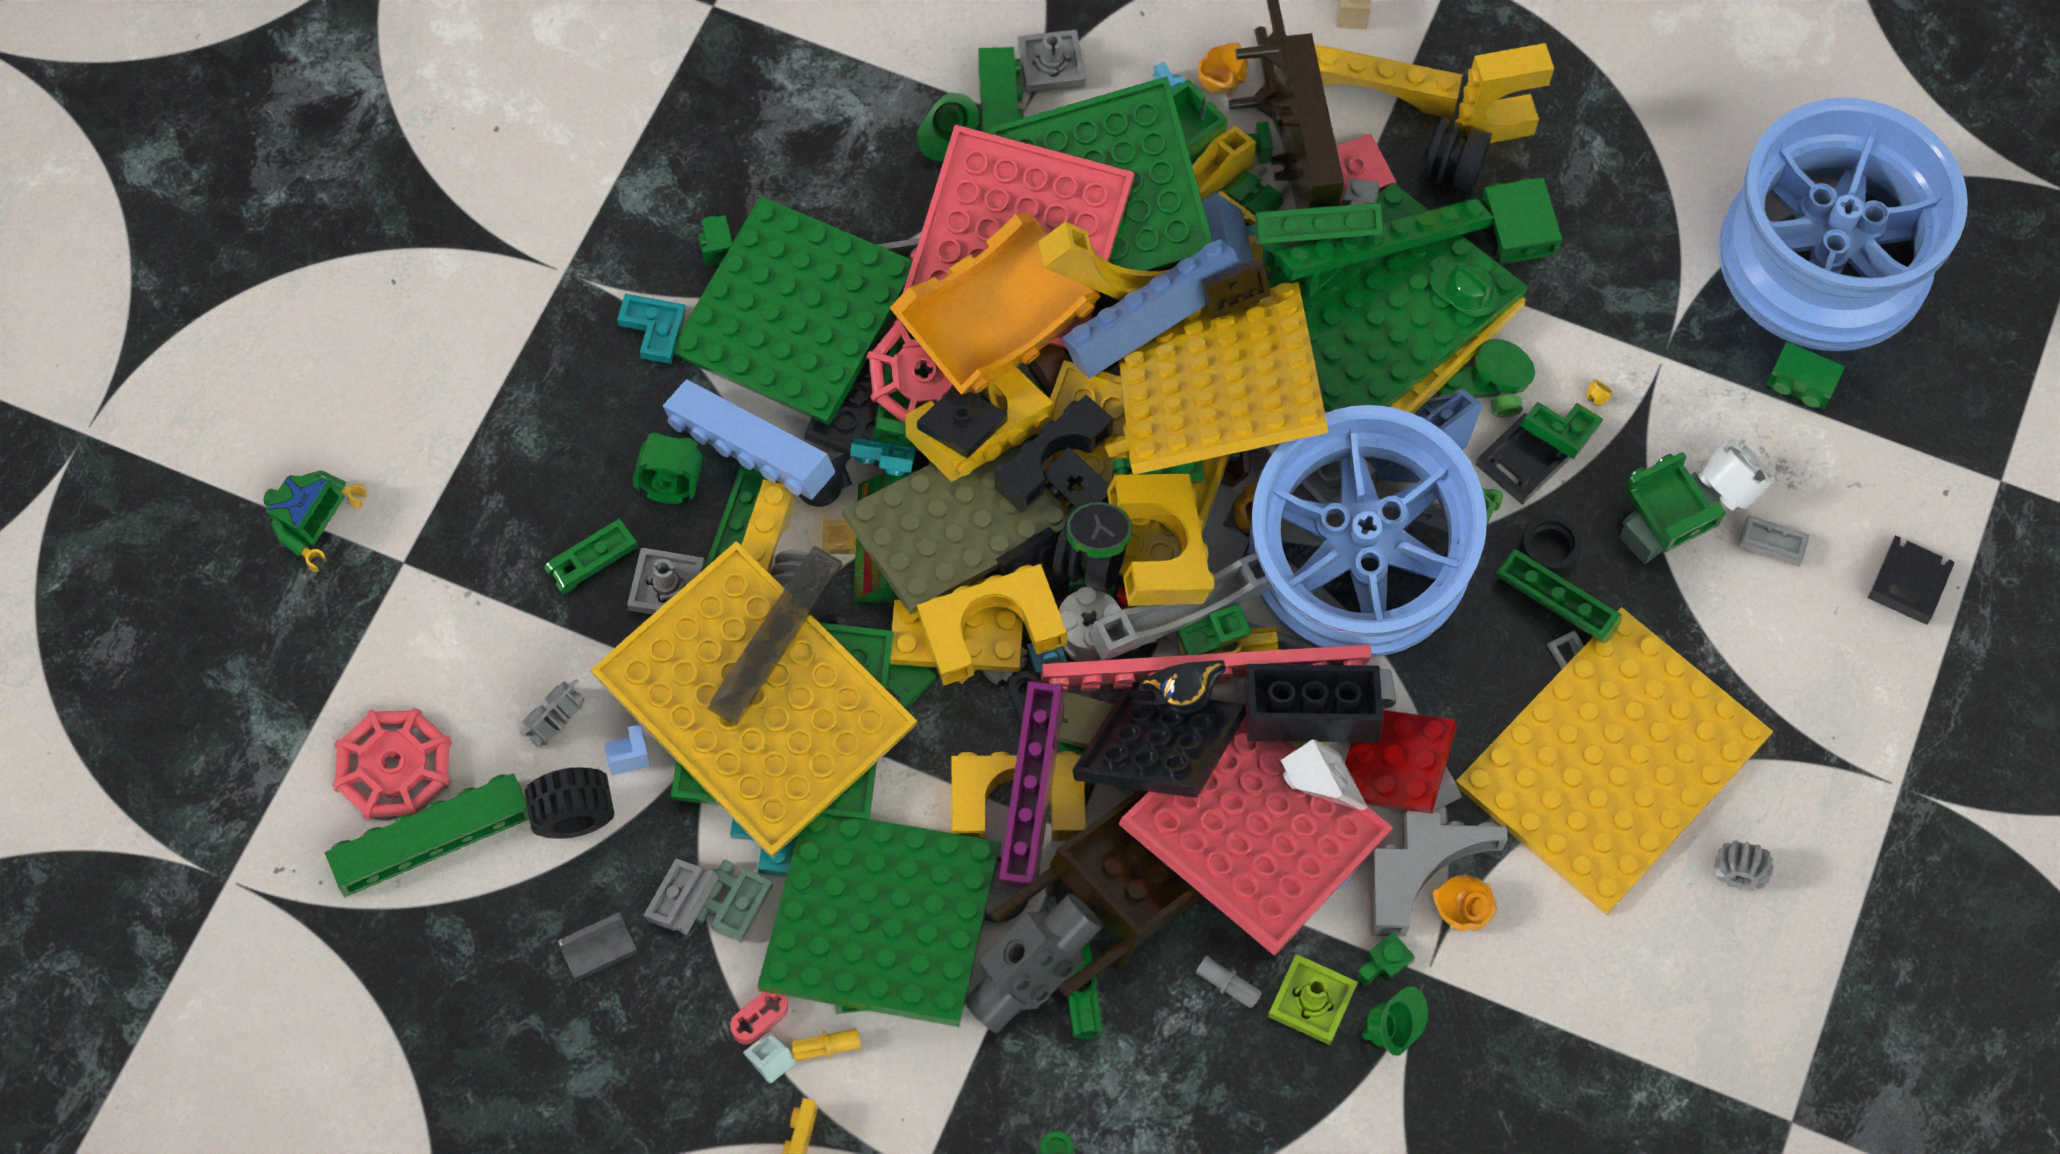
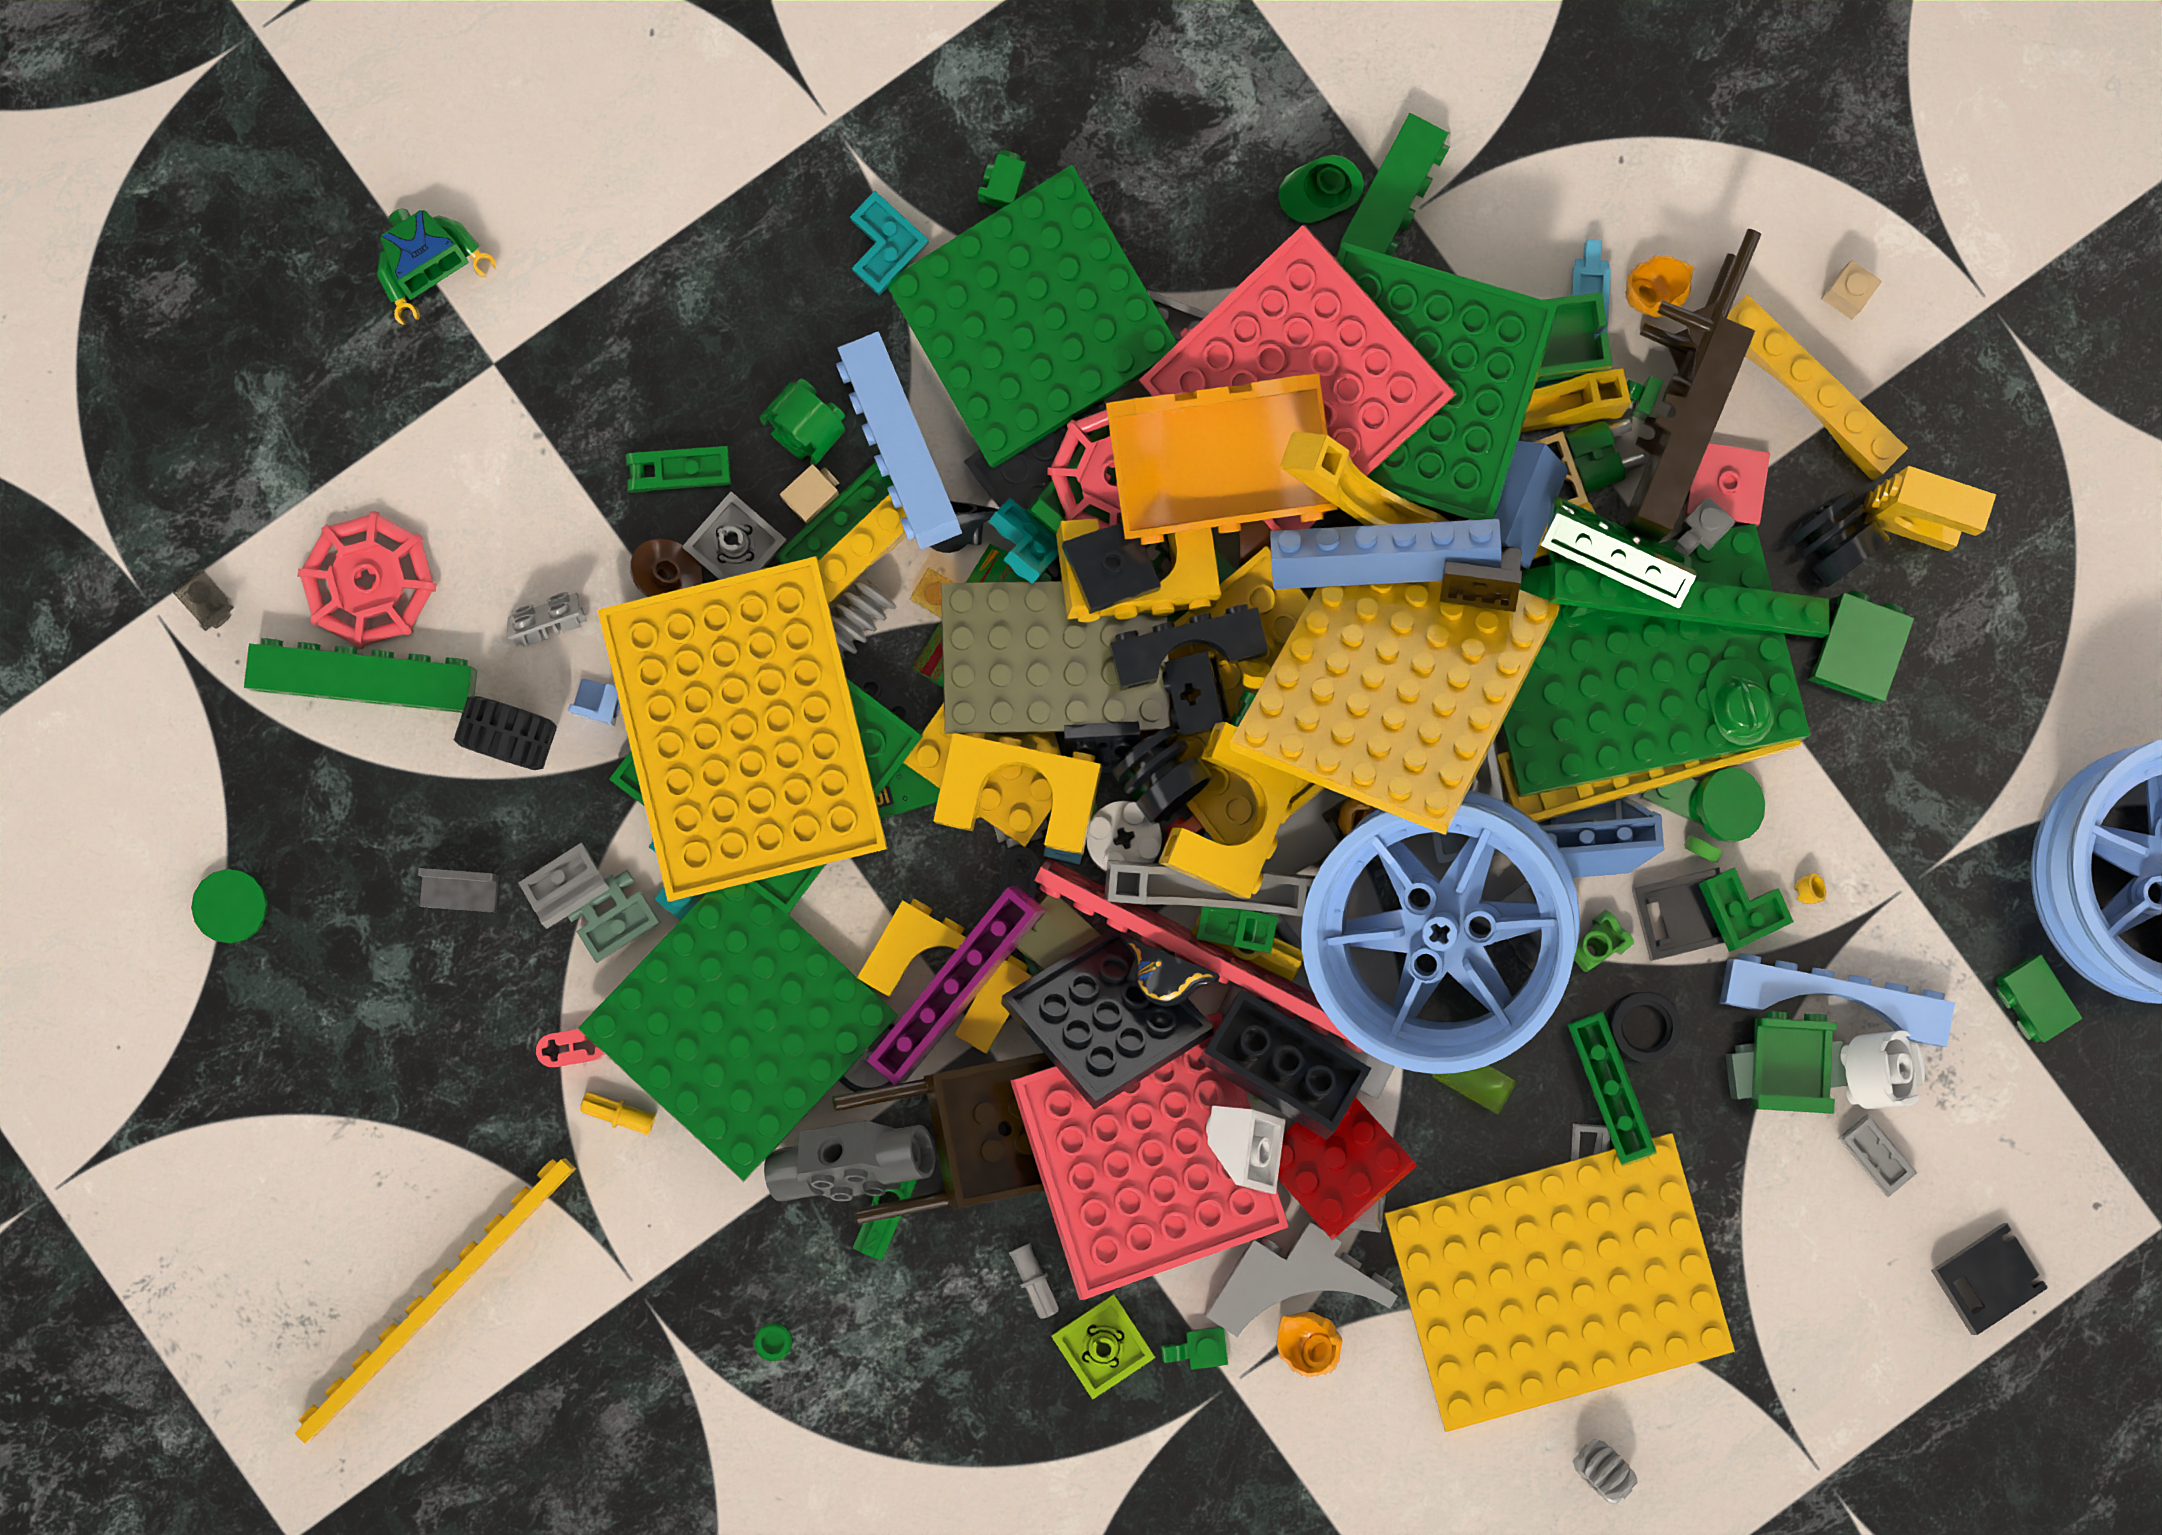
camera: 30 degrees right, 20 degrees up
(269, 845) = (204, 600): none -> clear smoke bracket
(418, 1066) = (229, 906): none -> green tile
(617, 625) = (665, 559): none -> reddish brown dish
(702, 518) = (811, 493): none -> tan brick
(770, 1057) = (559, 1091): light aqua slope -> none
(774, 635) = (794, 683): clear smoke plate -> none
(1048, 53) = (1488, 154): light grey plate -> none
(1099, 529) = (1173, 771): black tile -> none
(1397, 1021) = (1165, 1420): green piece -> none
(1456, 648) = (1481, 1085): none -> clear neon green plate
(1607, 473) = (1759, 986): none -> light blue arch

